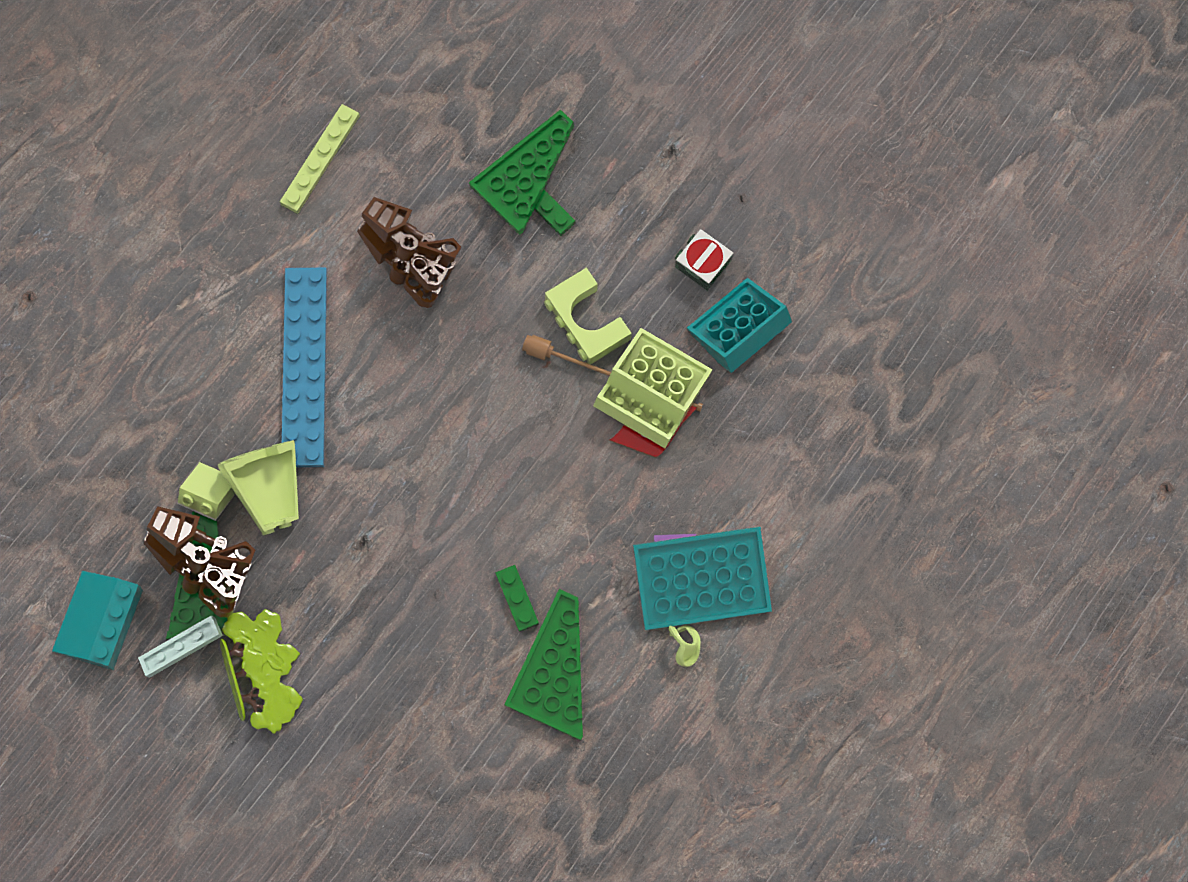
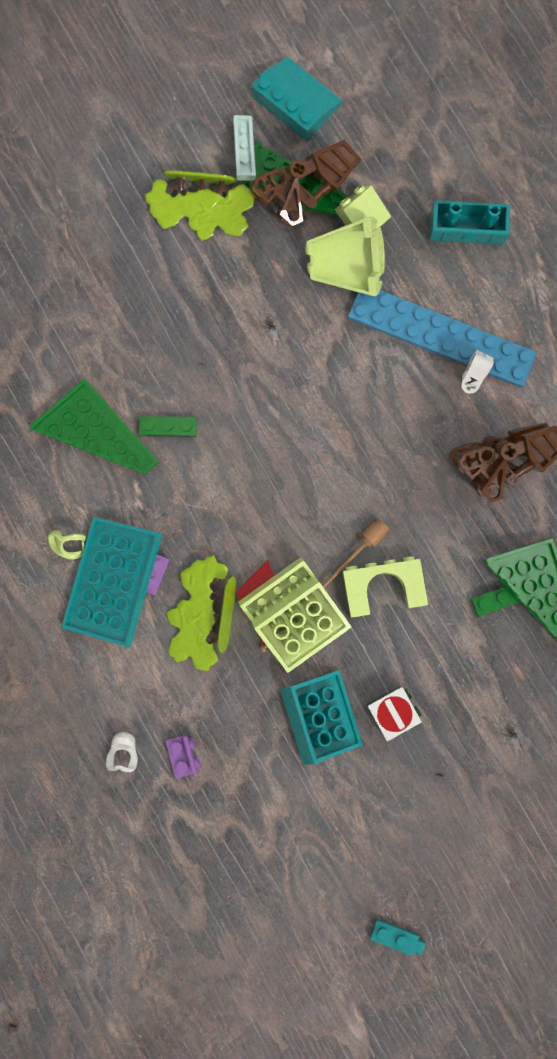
camera: 125 degrees right, 10 degrees up
(175, 383) = (469, 222): none -> teal piece
(331, 308) = (478, 369): none -> white piece
(698, 482) = (197, 616): none -> lime plant
(838, 438) = (182, 756): none -> medium lavender bracket
(852, 499) = (122, 741): none -> white piece
(907, 177) = (397, 938): none -> teal hinge

